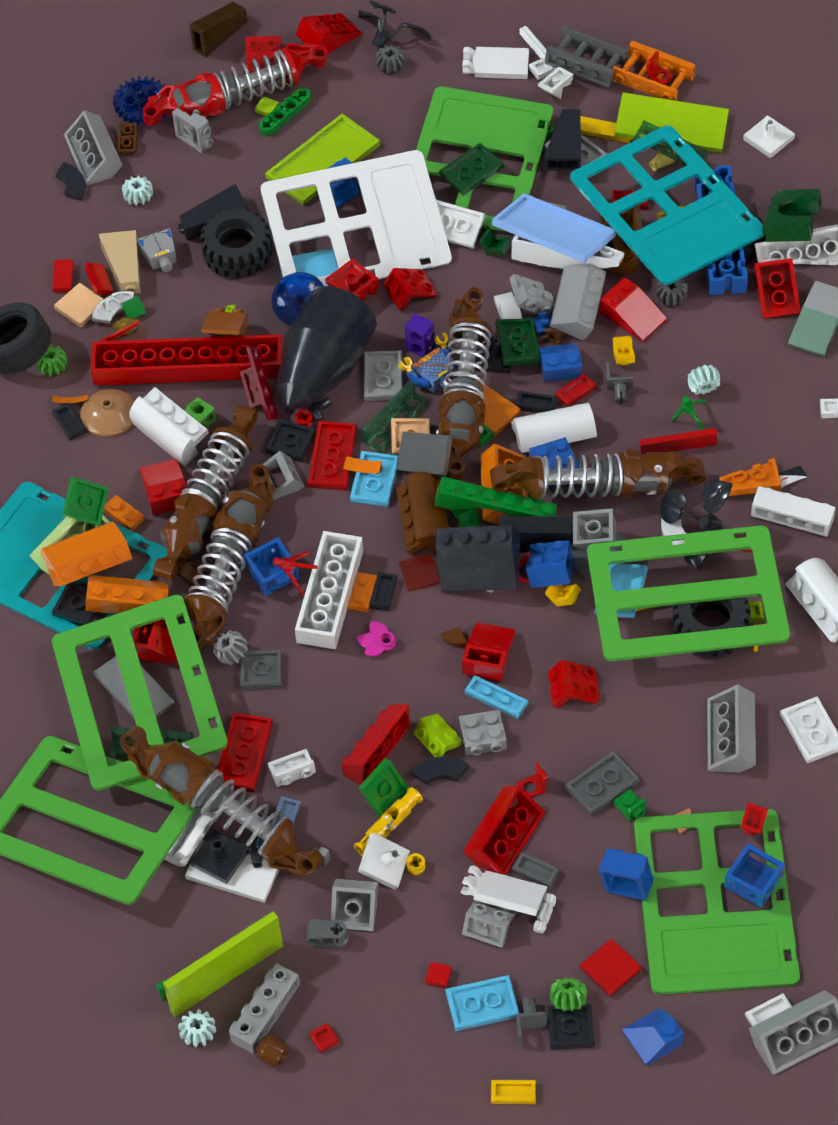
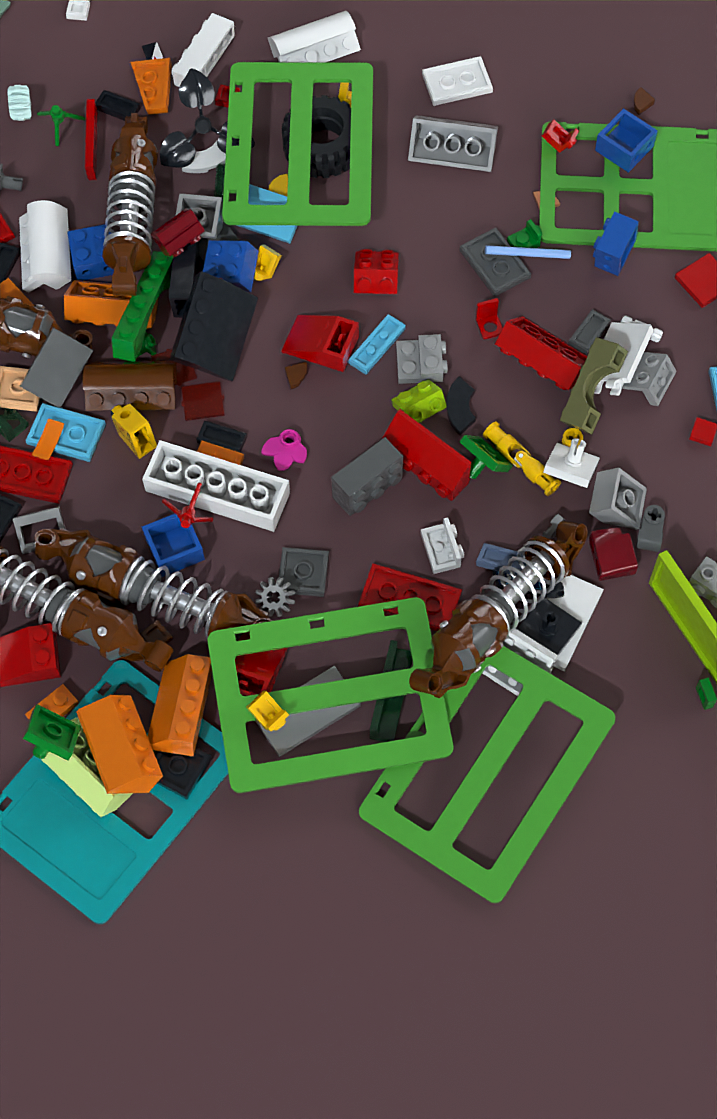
camera: 85 degrees left, 10 degrees up
(113, 644) = (267, 712): none -> yellow bracket
(297, 902) = (612, 553): none -> dark red piece
(348, 698) = (367, 477): none -> dark grey brick
(376, 521) = (129, 421): none -> yellow torso
(439, 861) = (603, 359): none -> olive arch
(564, 510) = (178, 232): none -> dark red brick
(613, 807) = (529, 252): none -> light blue bar
(723, 457) = (116, 105): none -> black tile
(820, 896) = (642, 101): none -> reddish brown tile

